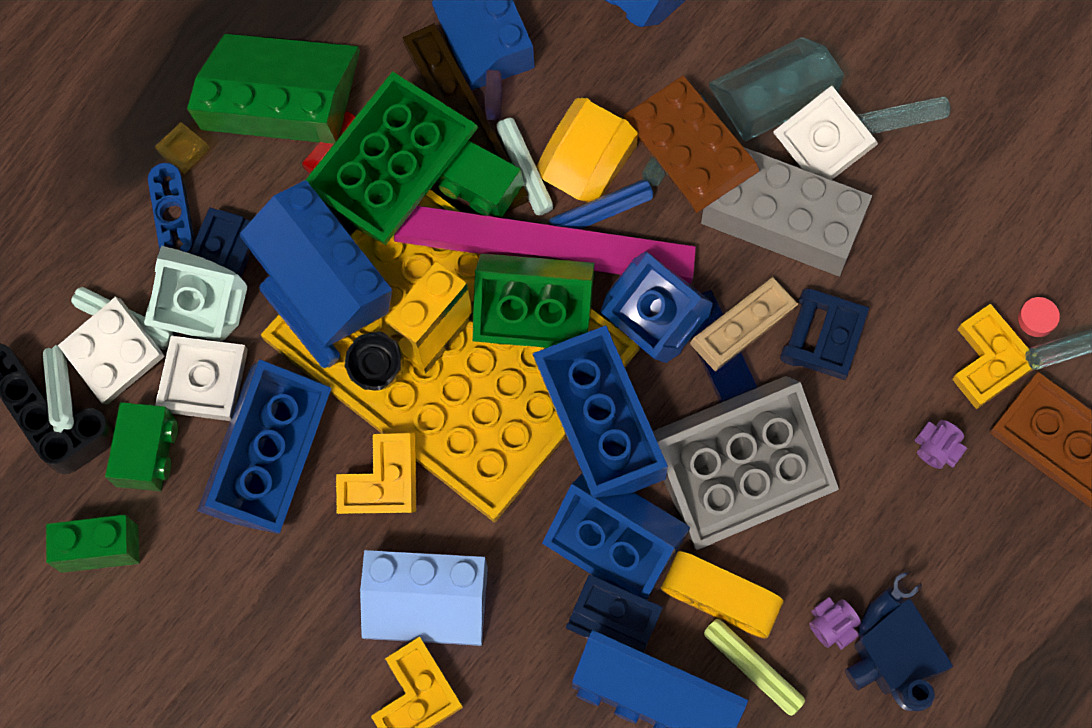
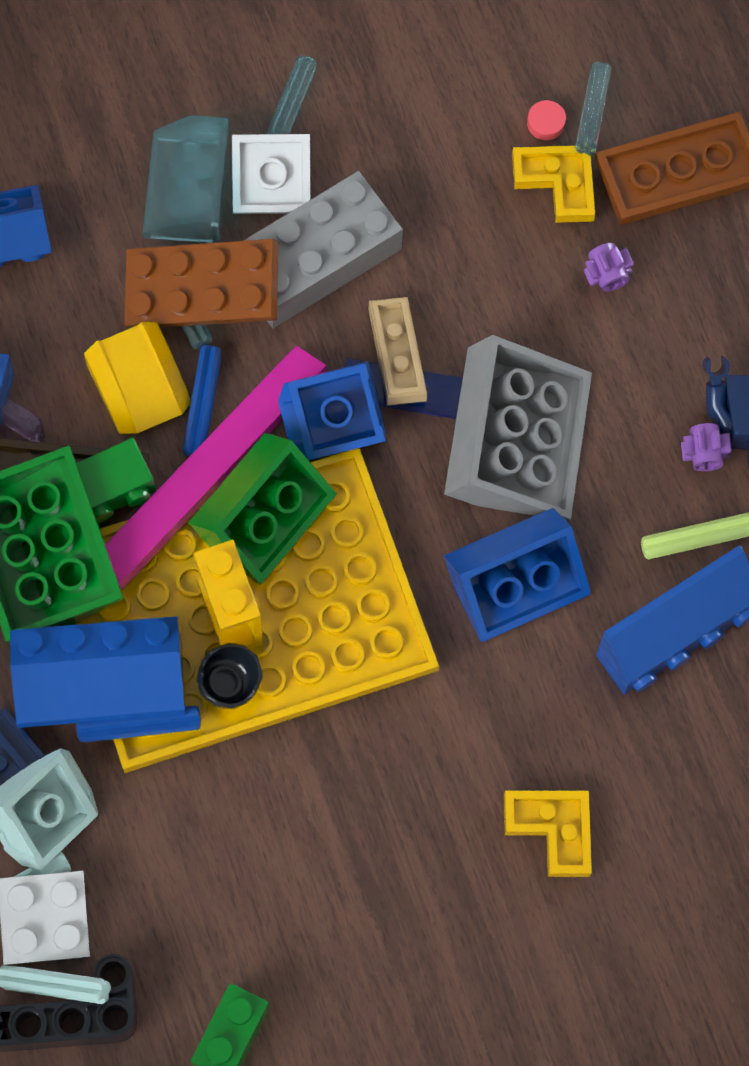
camera: 65 degrees left, 0 degrees up
(141, 447) = (162, 940): green brick -> none
(201, 378) = (127, 849): white plate -> none
(264, 448) = (240, 827): blue slope -> none
(391, 484) = (351, 737): yellow plate -> none
(423, 597) = (470, 768): light blue slope -> none
(521, 158) = (105, 438): light aqua axle -> none
(601, 414) = (413, 508): blue slope -> none
(614, 614) = (581, 619): dark blue plate -> none
(722, 594) = (626, 520): yellow beam -> none
(837, 337) = (458, 285): dark blue plate -> none

